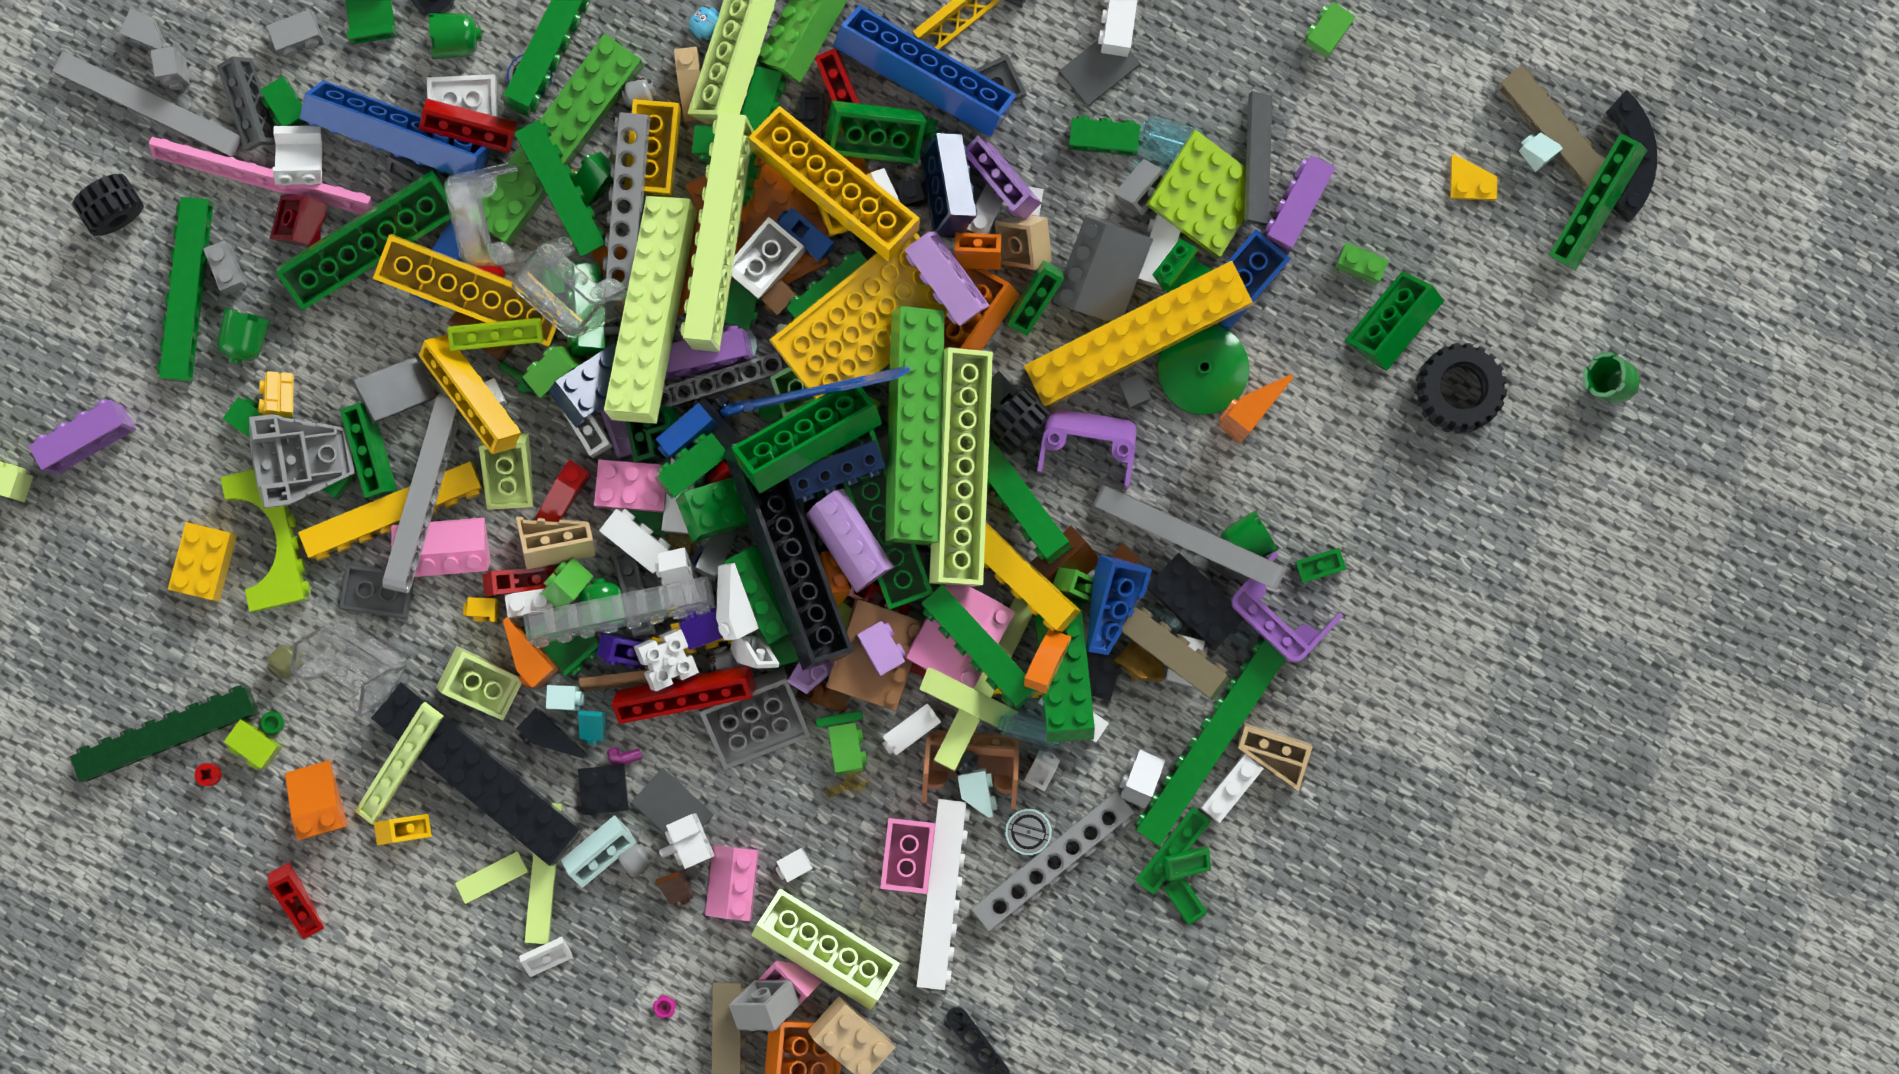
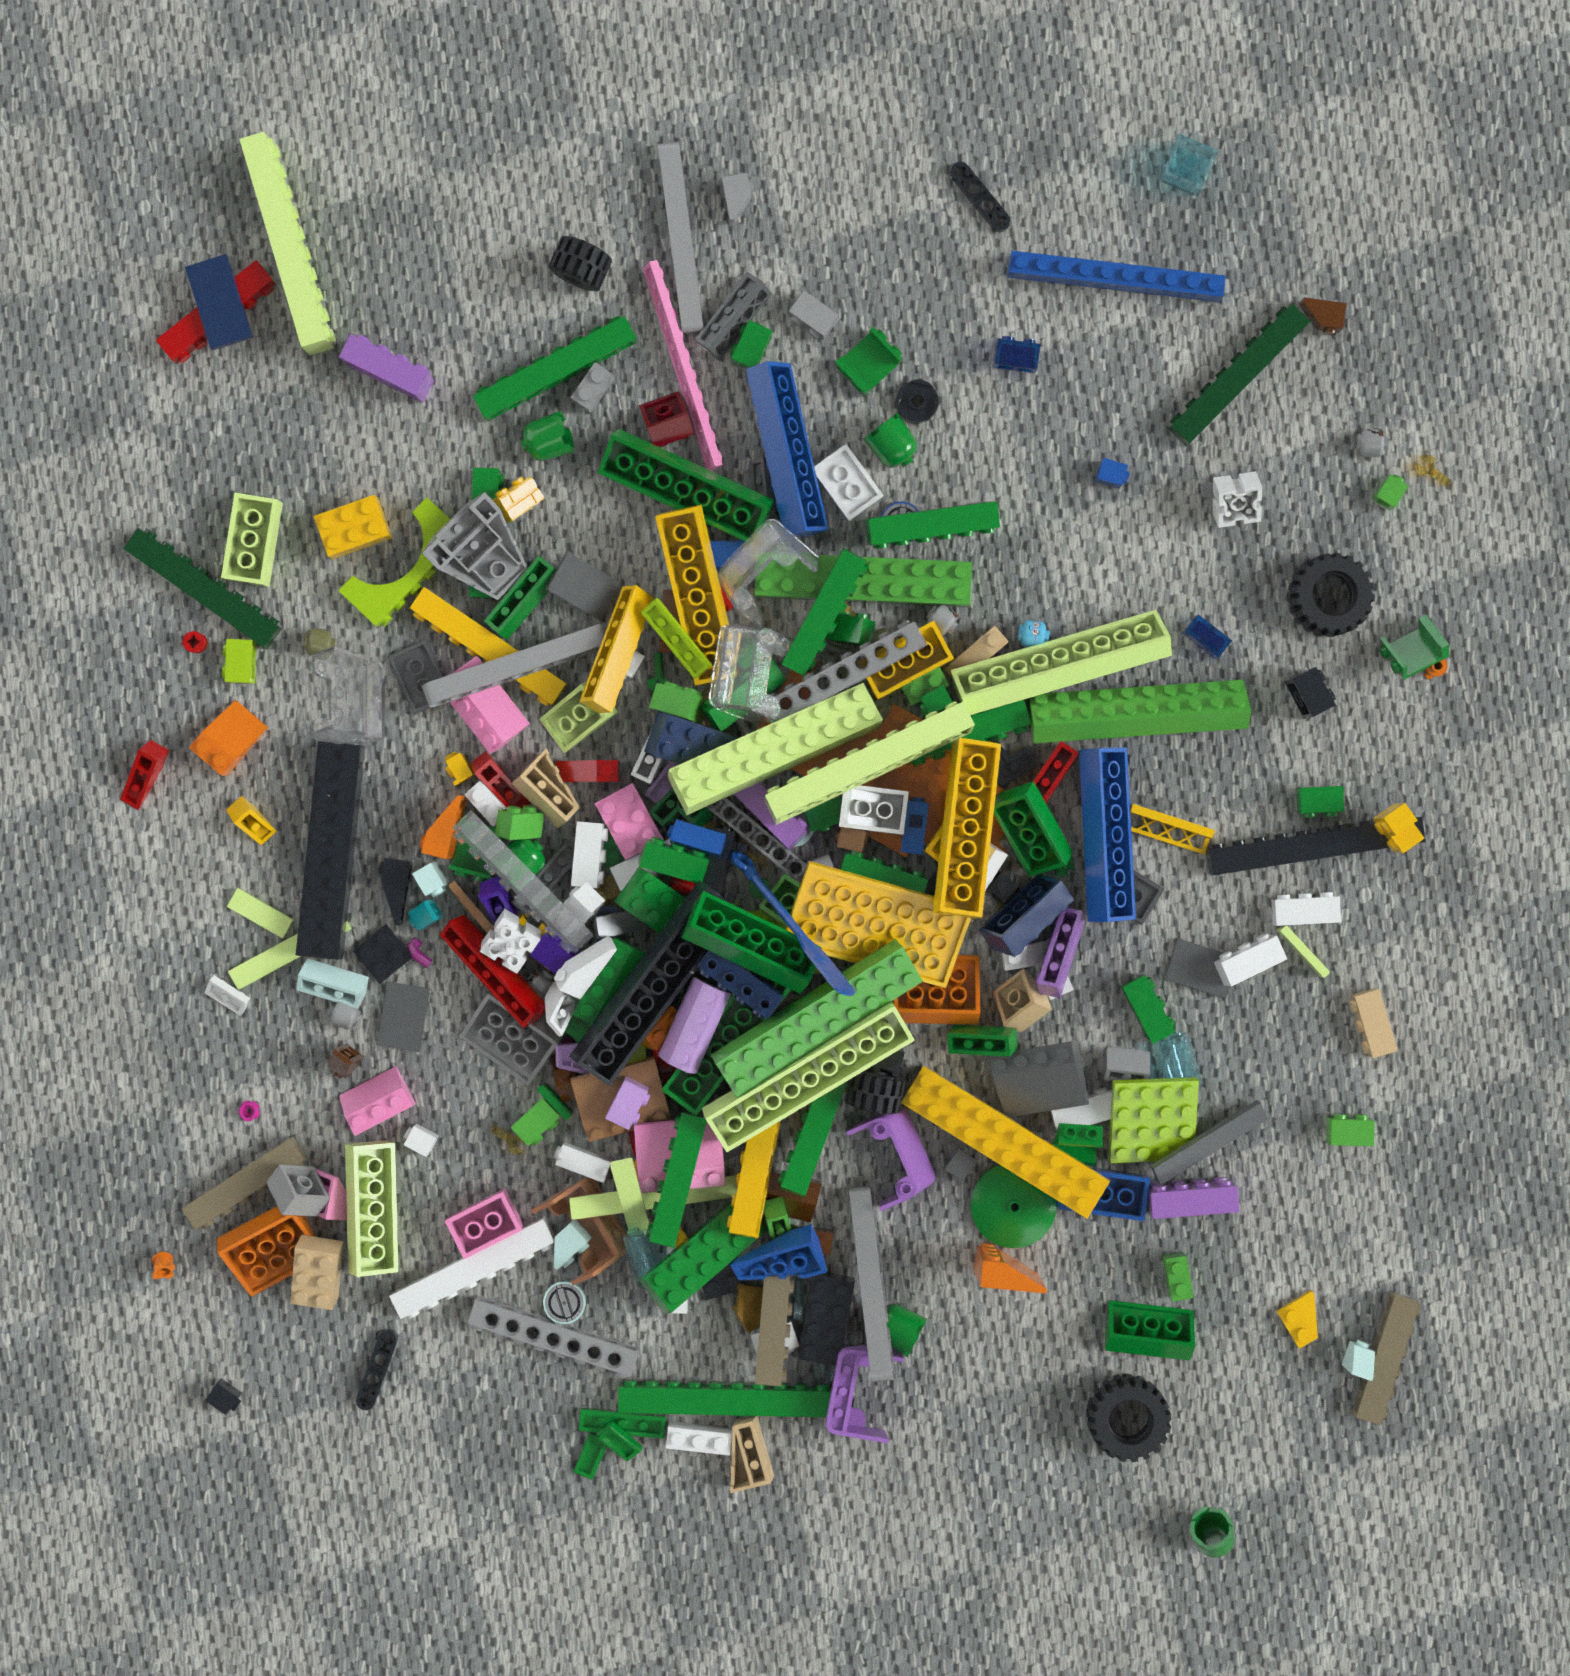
camera: 55 degrees right, 5 degrees up
(151, 660) = (252, 540): none -> yellowish green brick
(170, 68) = (720, 237): light grey brick -> none
(272, 723) = (266, 664): green tile -> none
(298, 155) = (716, 385): white panel -> none
(399, 763) = (297, 786): yellowish green tile -> none
(467, 125) = (827, 504): red brick -> none
(479, 683) = (400, 803): yellowish green slope -> none
(683, 157) = (924, 685): none -> bright green brick
(687, 842) = (383, 1049): white brick -> none
(946, 278) = (949, 965): lavender slope -> none
(967, 763) = (584, 1224): black piece -> none
(978, 250) = (989, 971): orange brick -> none
(1042, 770) = (618, 1282): white bracket -> none
(1047, 661) = (700, 1241): orange slope -> none
(1142, 778) = (661, 1365): brick -> none
(1320, 565) = (917, 1395): green plate -> none
(1598, 202) = (1347, 1433): green brick -> none
(1635, 124) = (1408, 1441): black brick -> none

